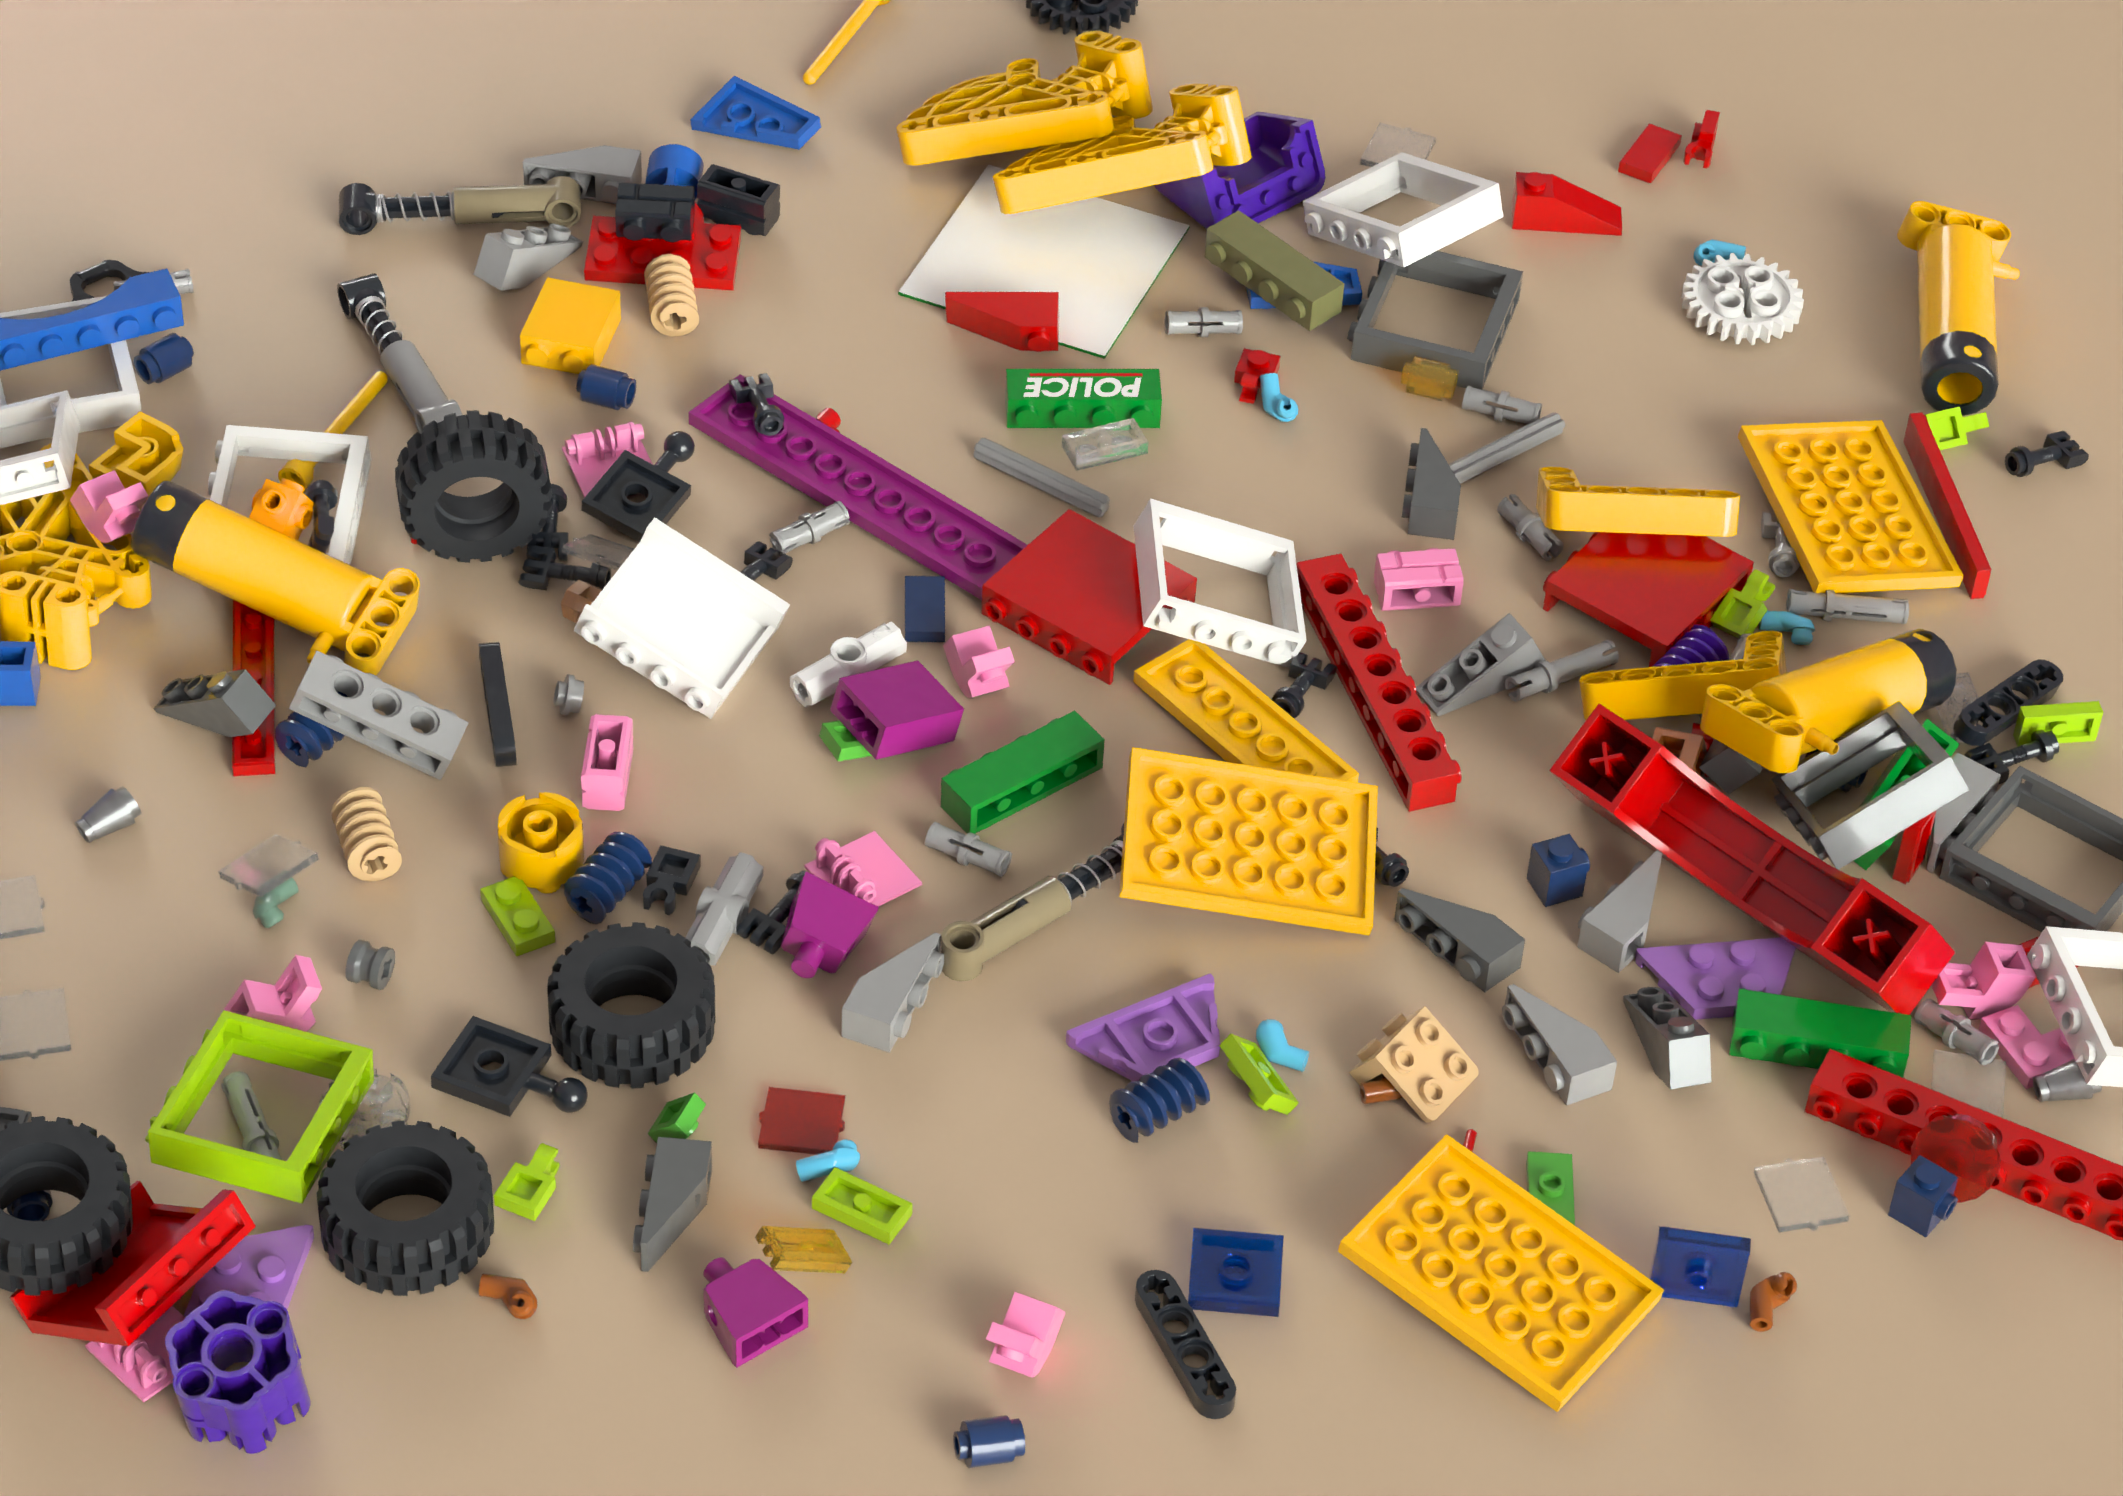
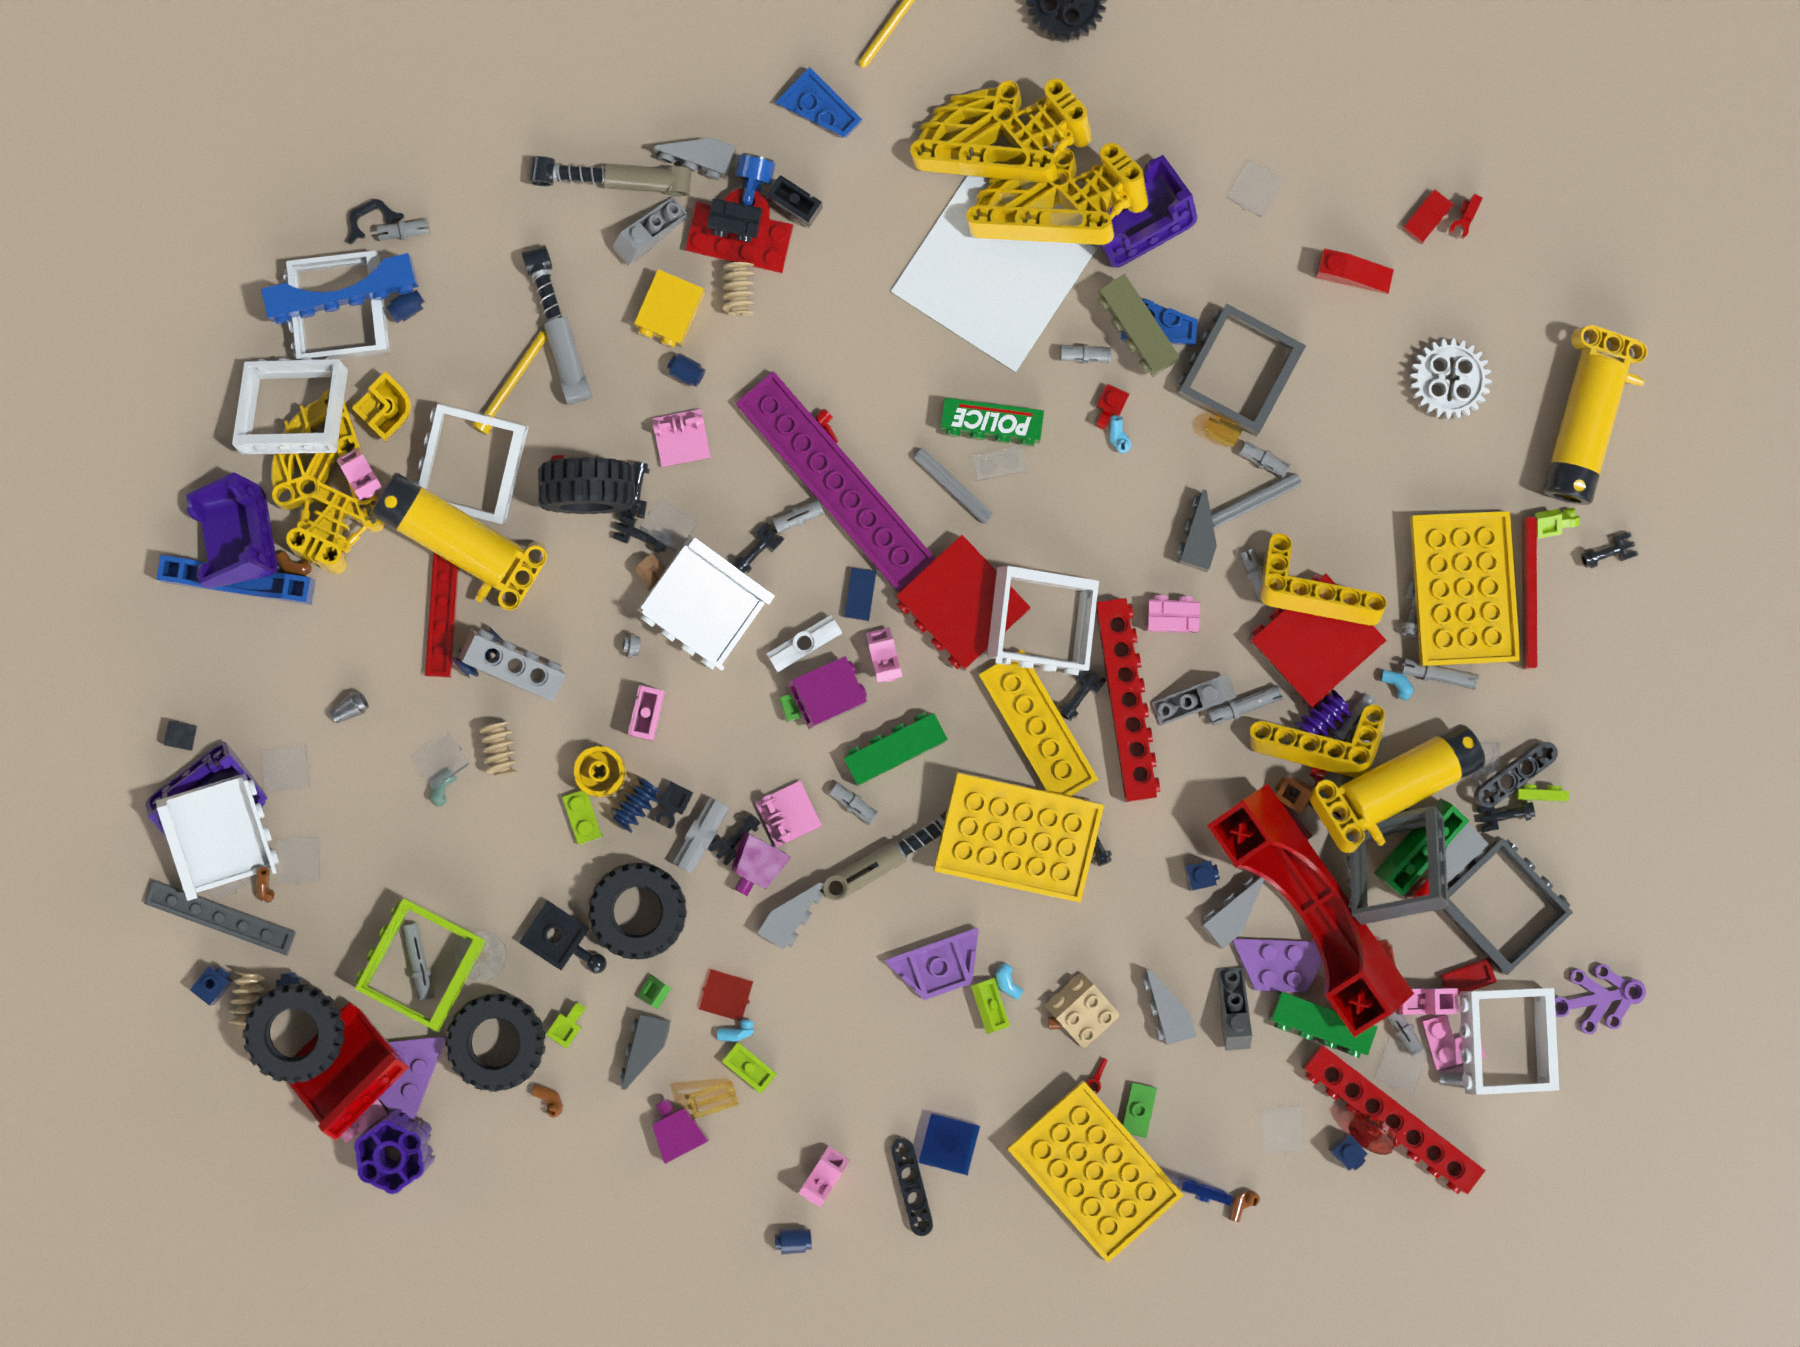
camera: 10 degrees right, 40 degrees up
(217, 702) = (417, 631): dark grey slope -> none
(282, 507) = (465, 490): light orange brick -> none
(282, 1003) = (434, 879): bright pink brick -> none
(324, 499) = (489, 510): black hinge -> none
(370, 964) = (492, 850): dark grey wheel -> none
(497, 704) = (587, 647): black beam -> none
(635, 475) = (693, 460): black plate -> none
(767, 418) = (783, 426): black hinge -> none
(1012, 318) = (964, 341): red slope -> none
(1157, 1098) = (929, 1018): dark blue piece -> none
(1464, 199) = (1257, 312): white window -> none
(1466, 938) = (1137, 923): dark grey slope -> none
(1715, 247) = (1446, 325): medium azure arm -> none
(1743, 610) = (1370, 672): lime plate -> none

